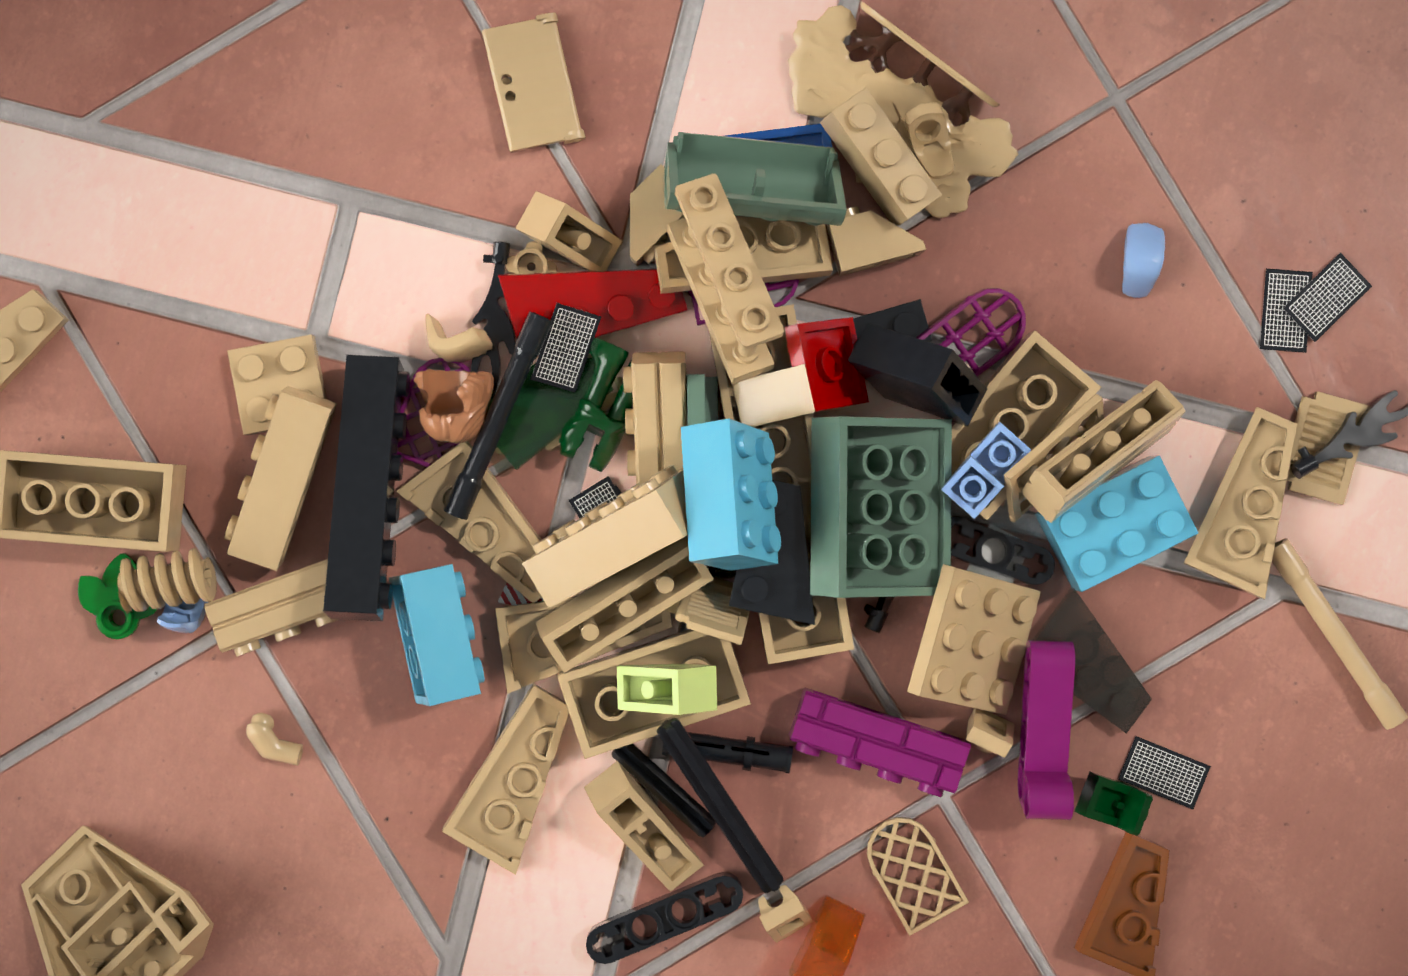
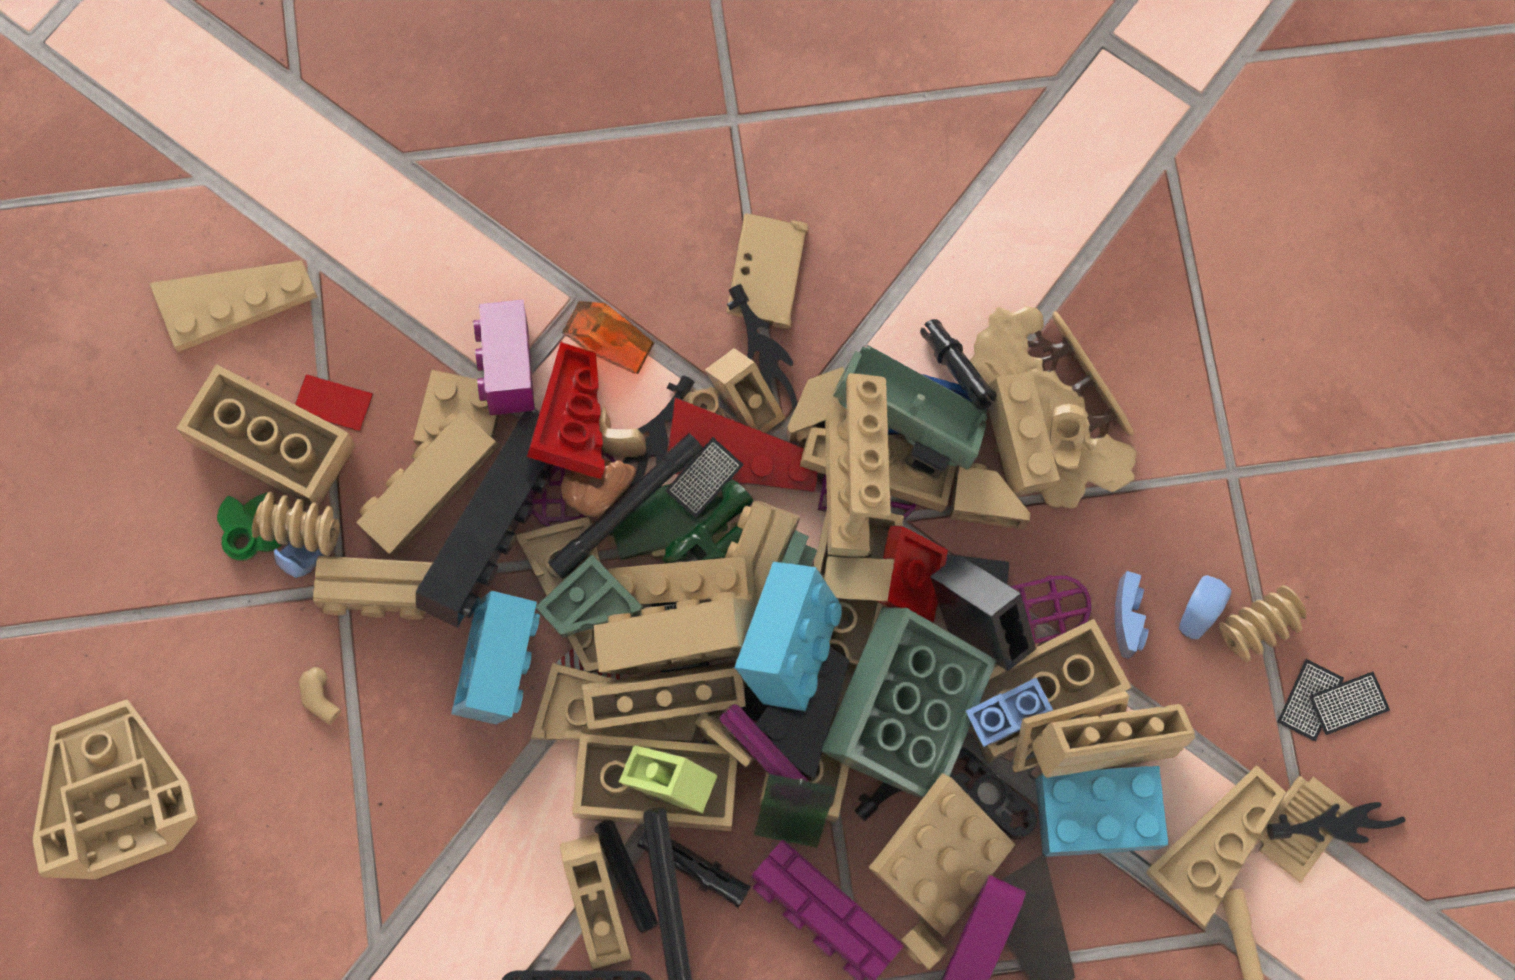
camera: 15 degrees right, 15 degrees down
(140, 428) = (334, 402): none -> red sticker
(298, 308) = (504, 357): none -> brick
(396, 233) = (609, 335): none -> clear orange slope
(396, 346) = (570, 415): none -> red wing
(502, 532) = (586, 600): none -> sand green wing
(506, 790) = (493, 819): tan wing -> none
(572, 173) = (769, 349): none -> black piece
(591, 472) = (687, 579): none -> tan plate
(755, 620) = (758, 743): none -> magenta axle
(768, 97) = (950, 353): none -> black pin
(792, 232) = (927, 460): none -> black tile
(807, 662) = (793, 810): none -> piece
(1073, 317) = (1129, 624): none -> light blue slope
(1210, 252) = (1262, 622): none -> tan piece

